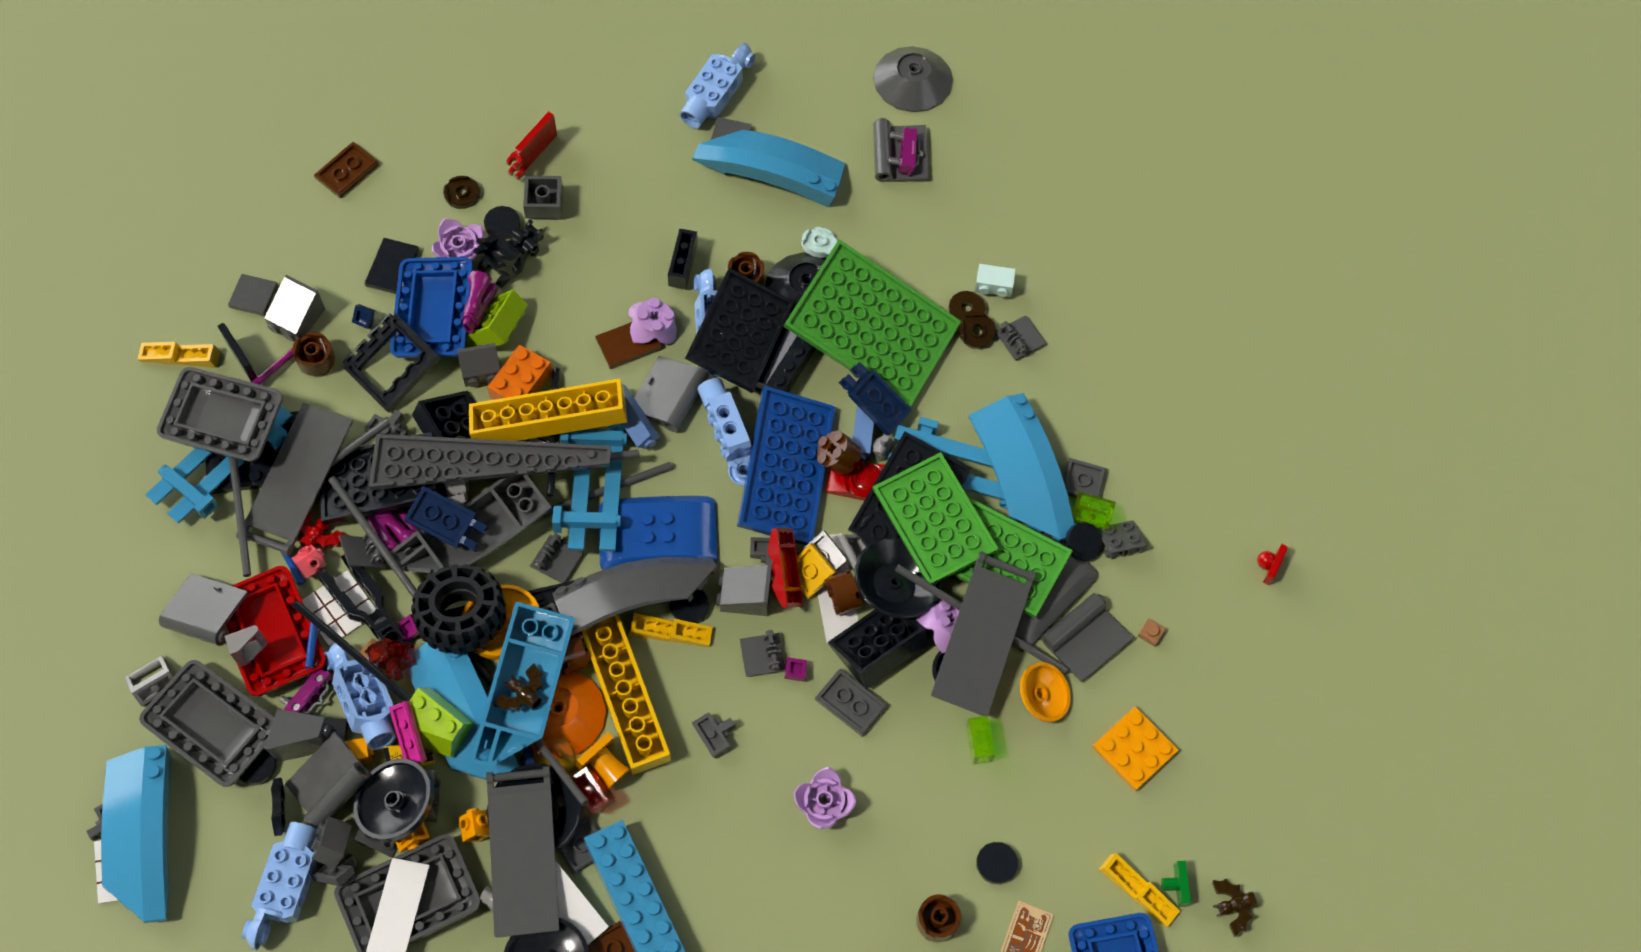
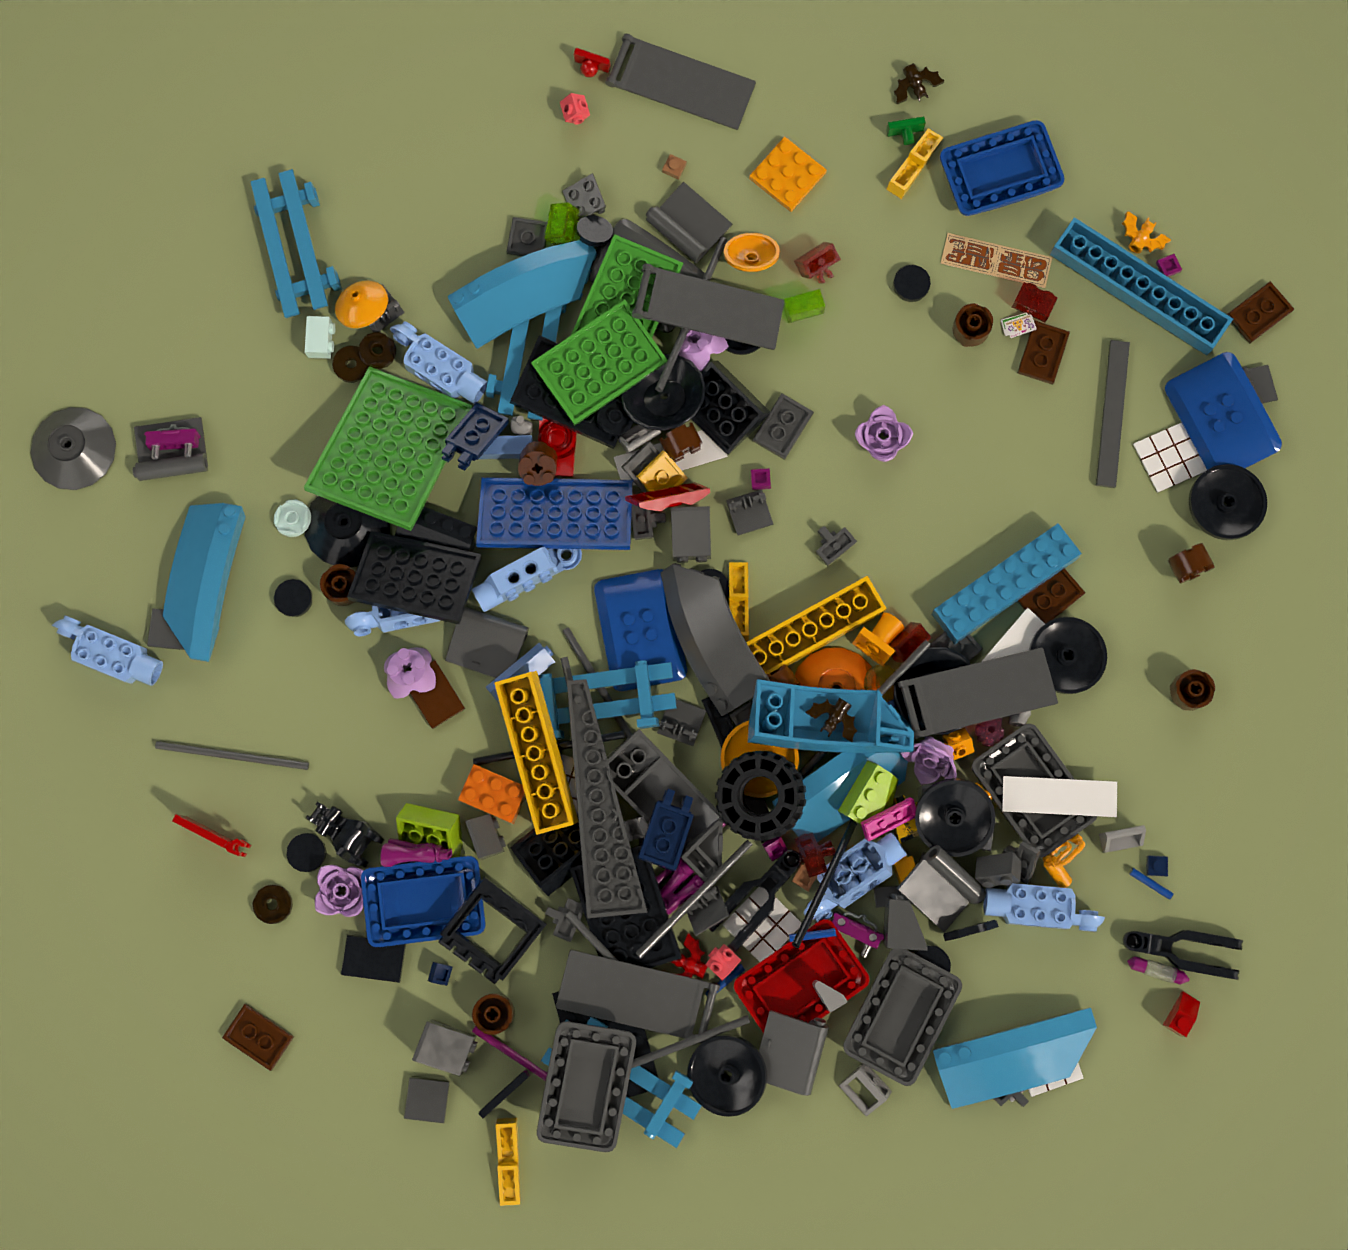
camera: 90 degrees left, 15 degrees up
(199, 549) = (714, 1087): none -> black dish
(317, 908) = (1055, 865): none -> light orange piece
(461, 795) = (932, 760): none -> lavender brick
(472, 859) = (989, 732): none -> clear pink brick
(543, 197) = (273, 811): dark grey brick -> none
(602, 179) = (232, 755): none -> dark grey piece
(682, 258) = (332, 652): black brick -> none
(742, 236) = (293, 598): none -> black tile
(954, 380) = (438, 365): none -> light blue brick
(1025, 320) = (361, 304): none -> light orange dish
(1029, 759) = (818, 261): none -> clear red brick
(1135, 271) = (292, 201): none -> dark azure fence
(1220, 539) = (574, 108): none -> coral brick
(1247, 655) = (682, 82): none -> dark grey flag

